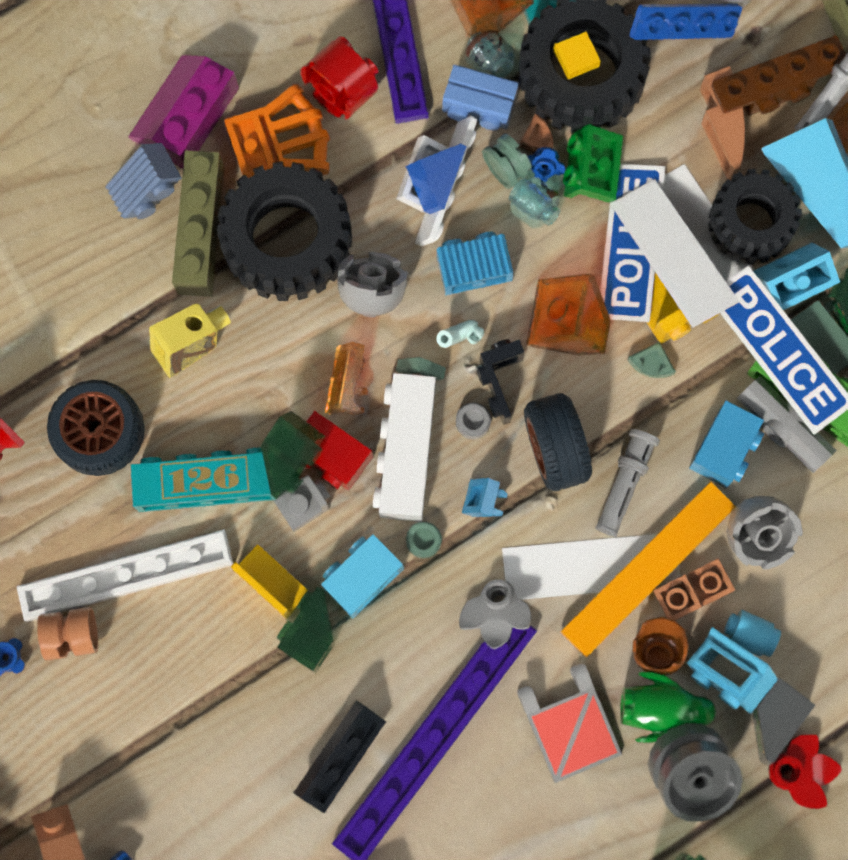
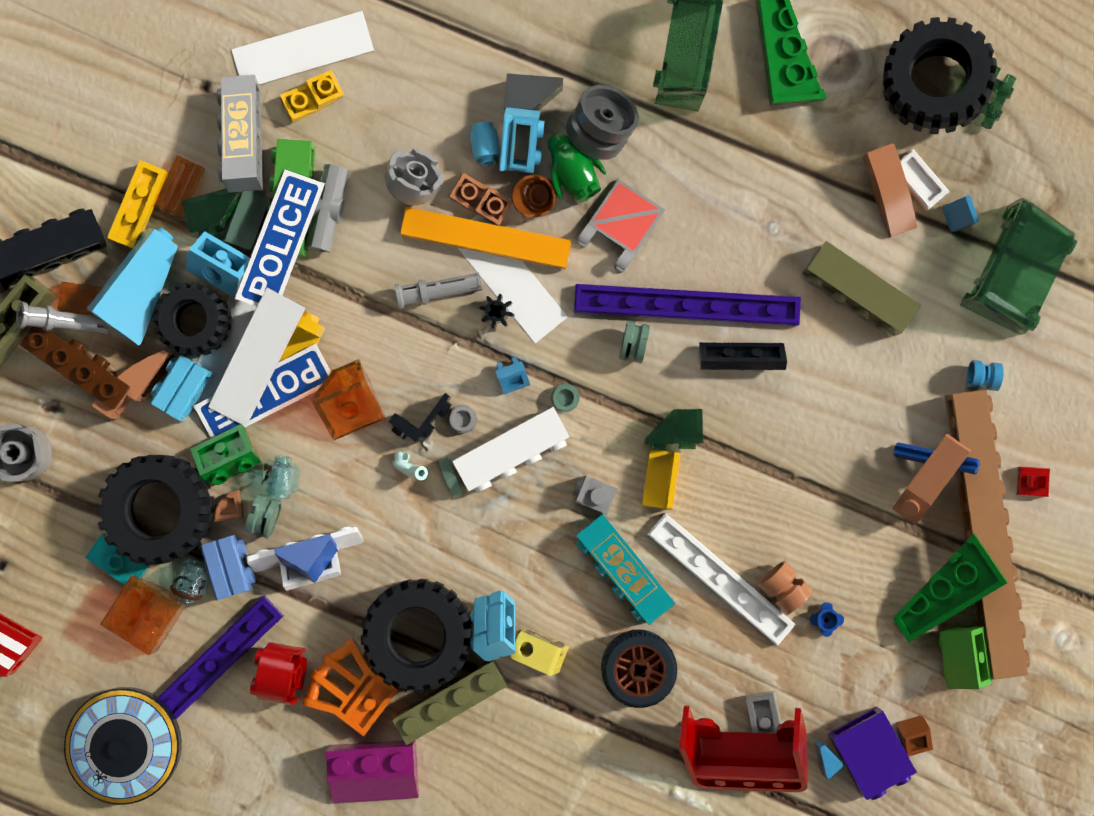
camera: 130 degrees left, 10 degrees up
(143, 181) = (447, 759): sand blue brick -> none
(240, 309) = (493, 626): none -> medium azure brick
(287, 451) = (570, 523): clear green slope -> none
(342, 455) = (548, 498): red brick -> none
(346, 370) = (489, 525): clear orange plate -> none
(361, 575) = (617, 421): medium azure brick -> none
(371, 284) = (414, 549): light grey cylinder -> none
(433, 649) = (634, 342): none -> sand green wheel
(474, 263) = (352, 490): dark azure brick -> none
(495, 618) = (587, 317): light grey plate -> none
(548, 157) = (246, 489): blue plate -> none
(558, 442) = (442, 349): black wheel -> none
(569, 522) = (489, 310): none -> black gear
(577, 55) = (157, 513): yellow tile -> none
(652, 362) = (341, 325): sand green tile -> none
(685, 21) = (78, 458): blue bracket -> none
(691, 164) = (180, 387): none -> medium azure brick
(727, 444) = (367, 237): dark azure brick -> none
(809, 771) = (549, 54): red plate -> none

